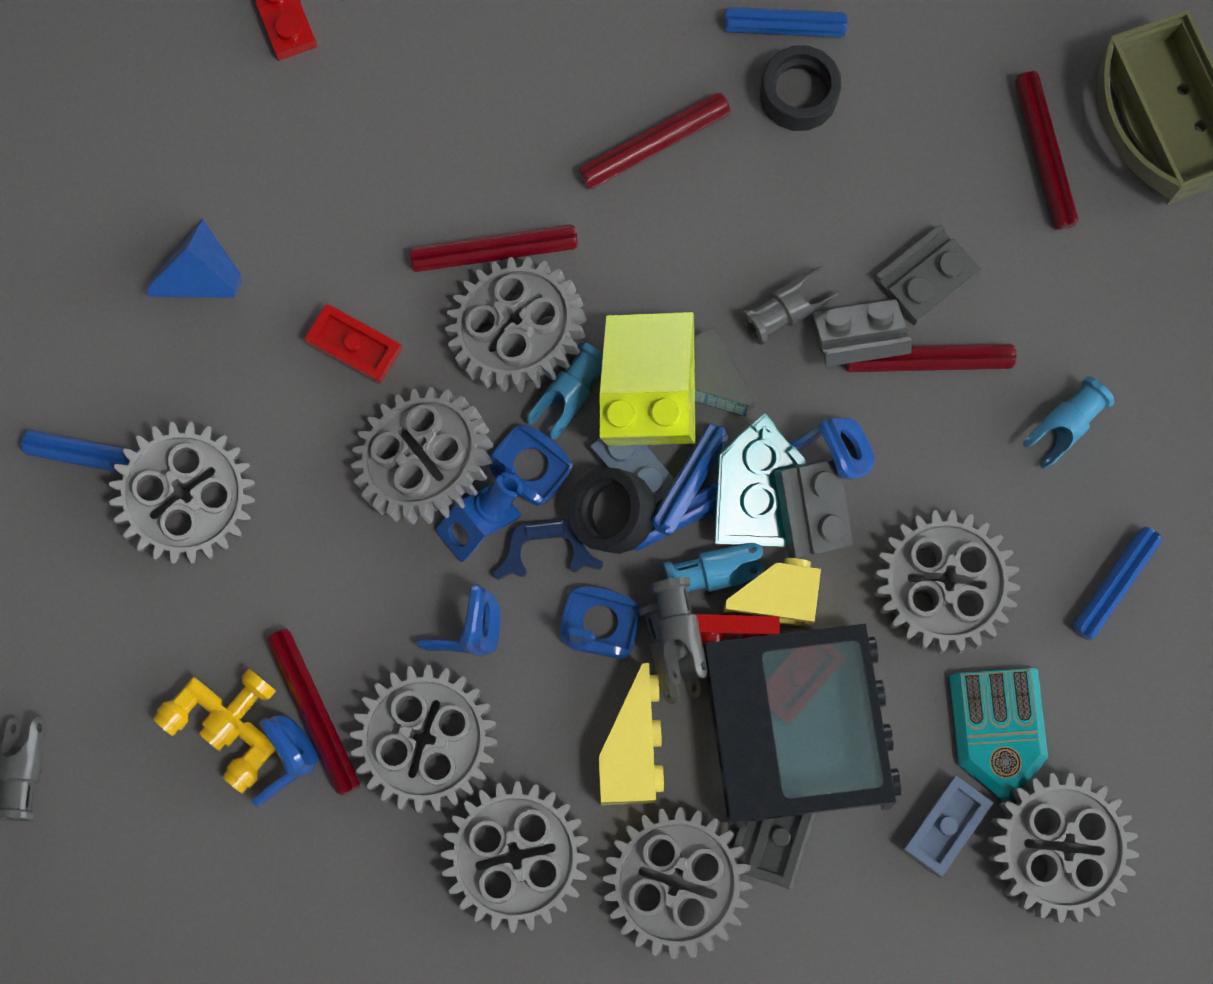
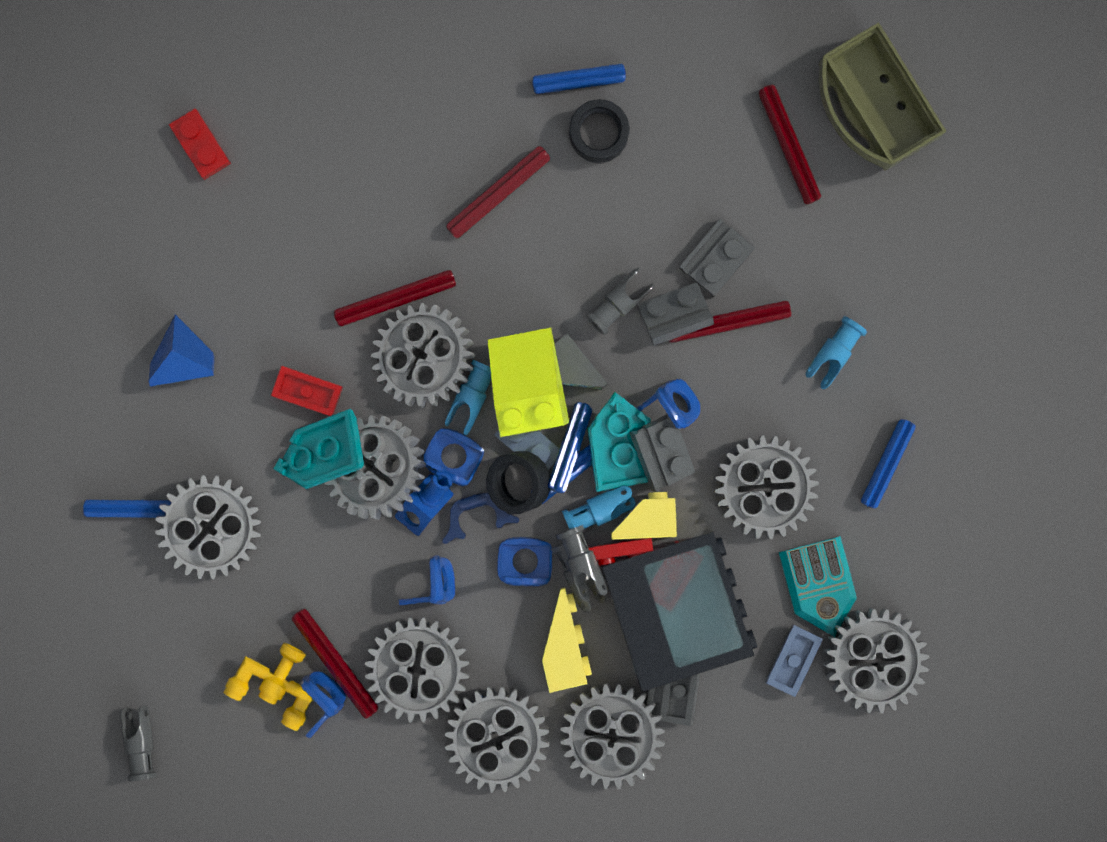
camera: 15 degrees left, 10 degrees up
(358, 421) = (323, 451): none -> teal tile

